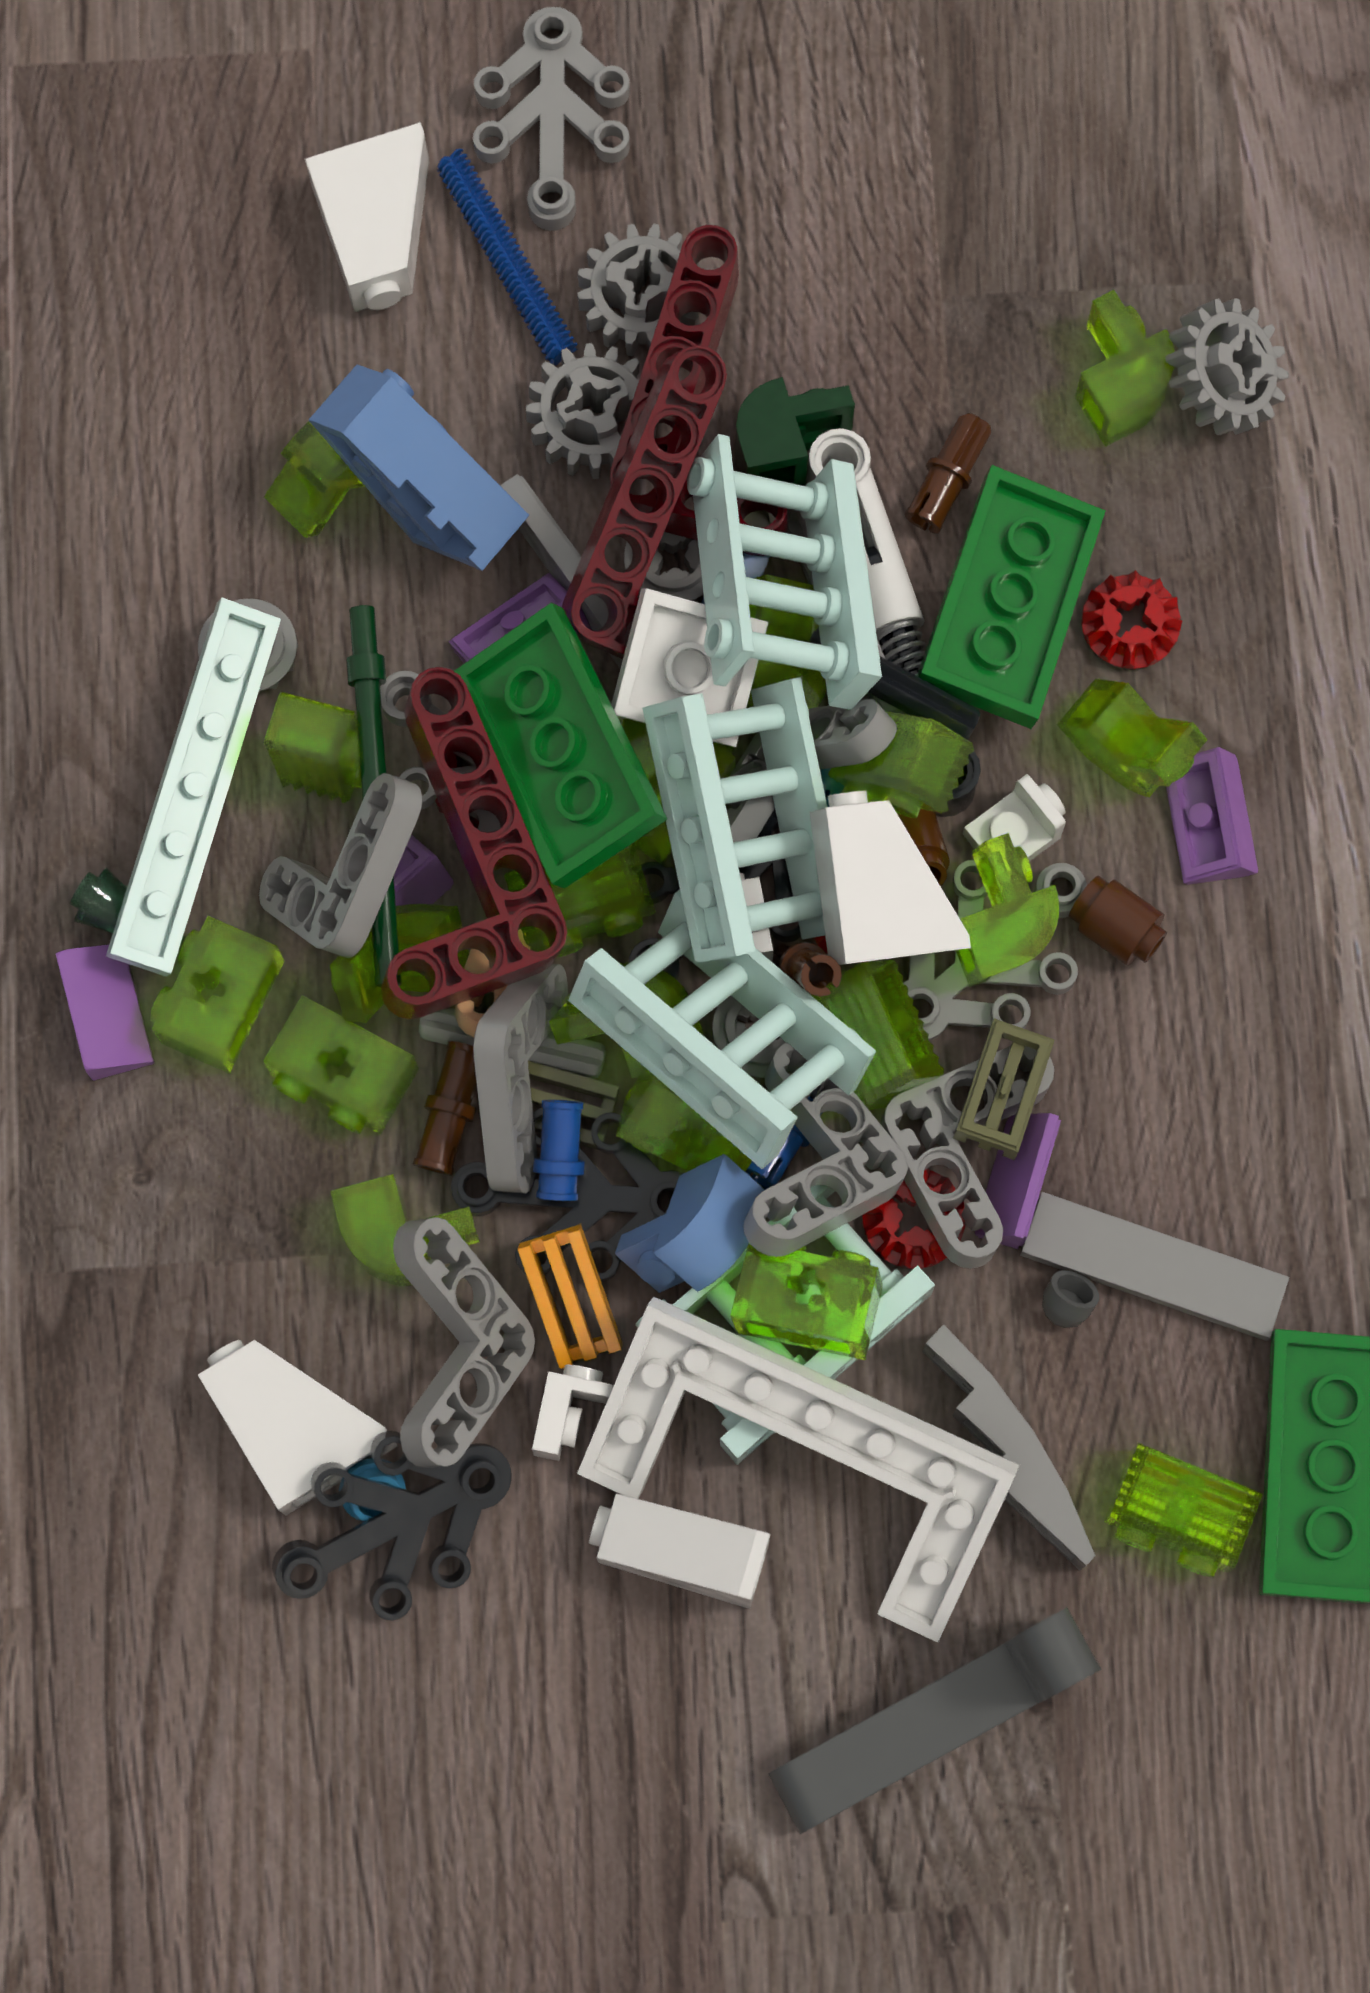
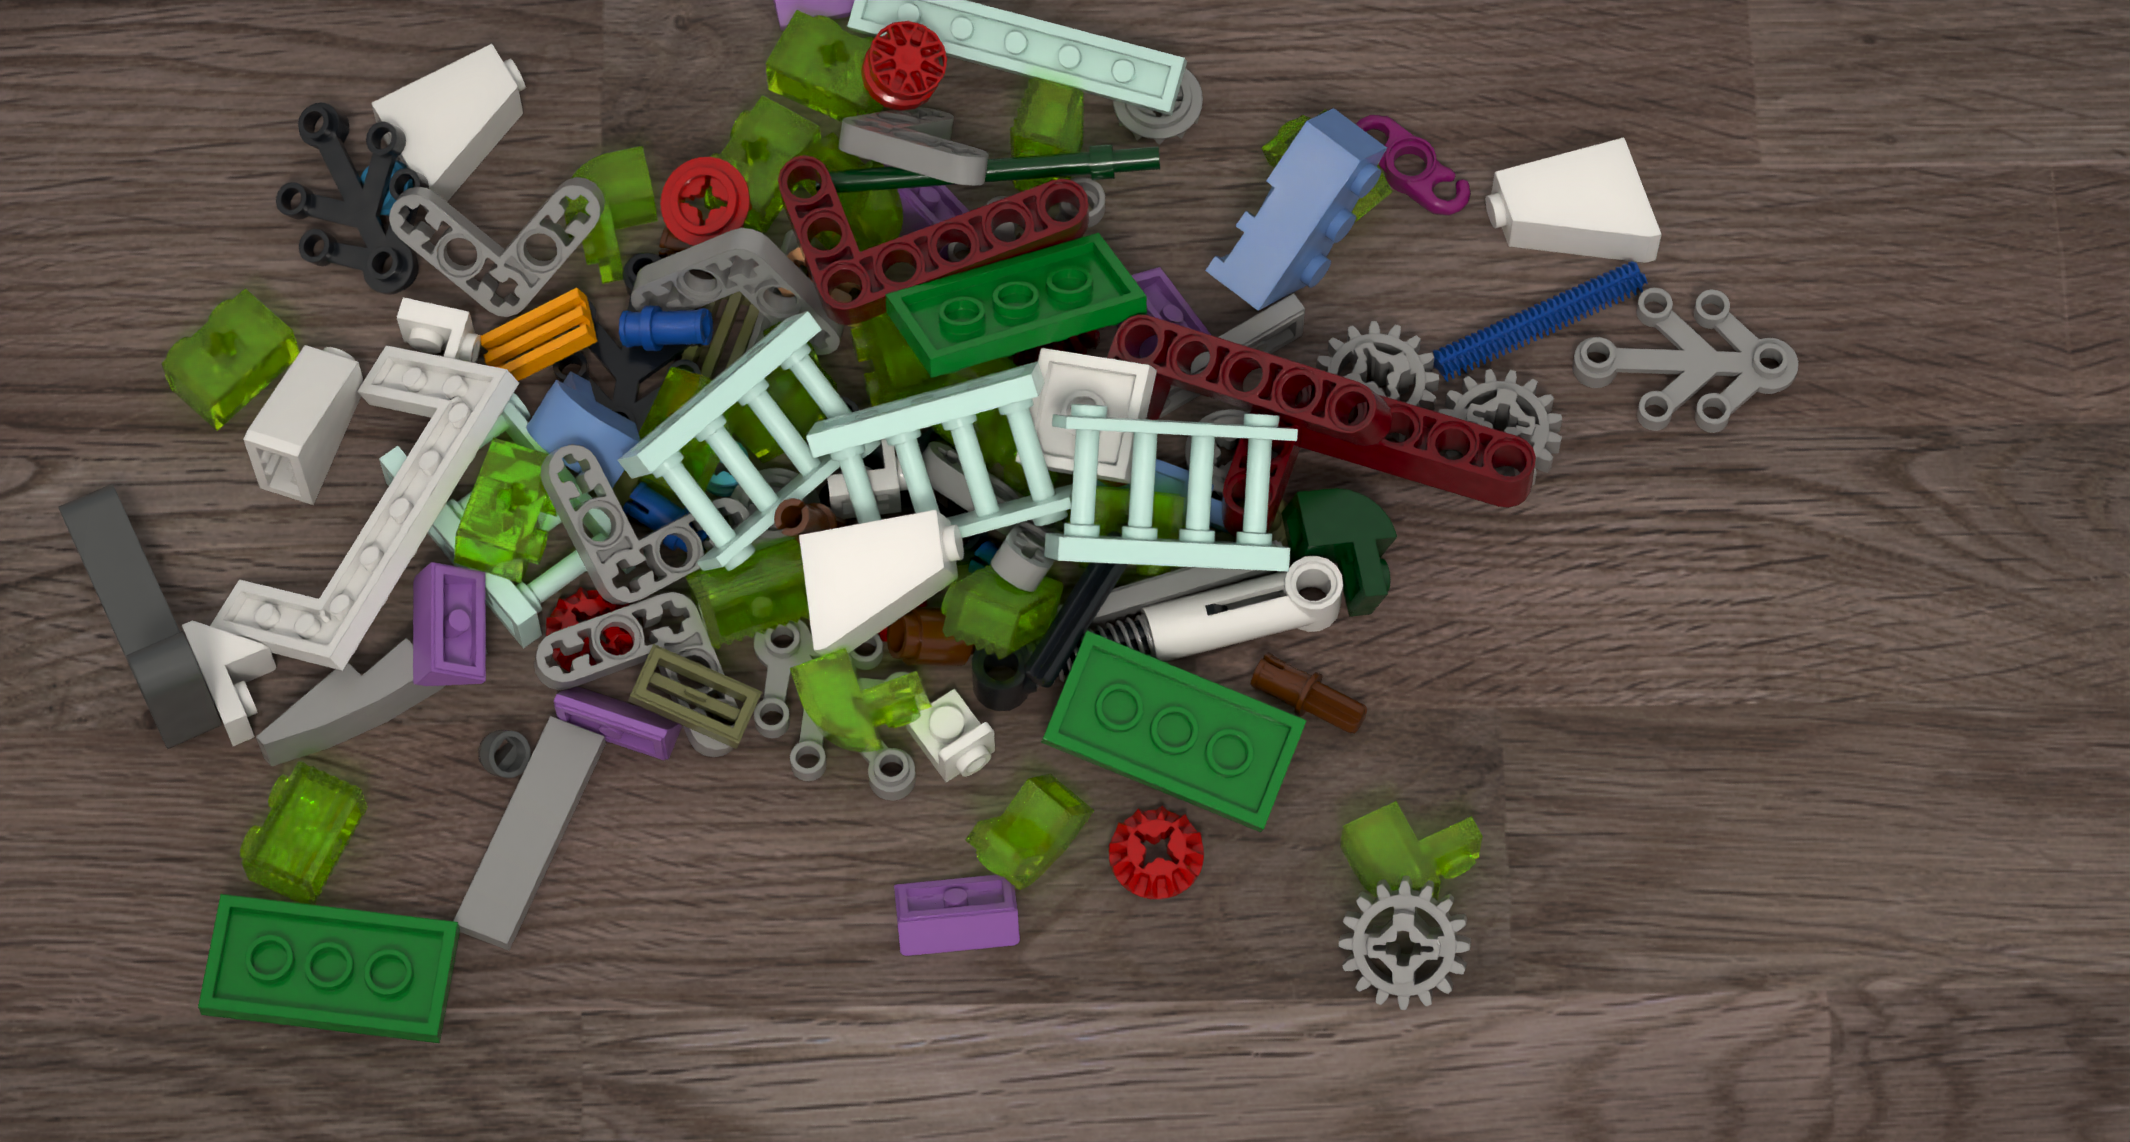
camera: 90 degrees right, 10 degrees down
(233, 902) = (903, 65): none -> red wheel
(293, 398) = (1420, 186): none -> magenta piece
(430, 1091) = (691, 182): none -> red gear
(640, 1662) = (230, 358): none -> clear neon green brick
(946, 1358) = (449, 626): none -> medium lavender slope
(984, 1624) = (226, 666): none -> white slope
(1118, 921) = (855, 816): reddish brown brick -> none

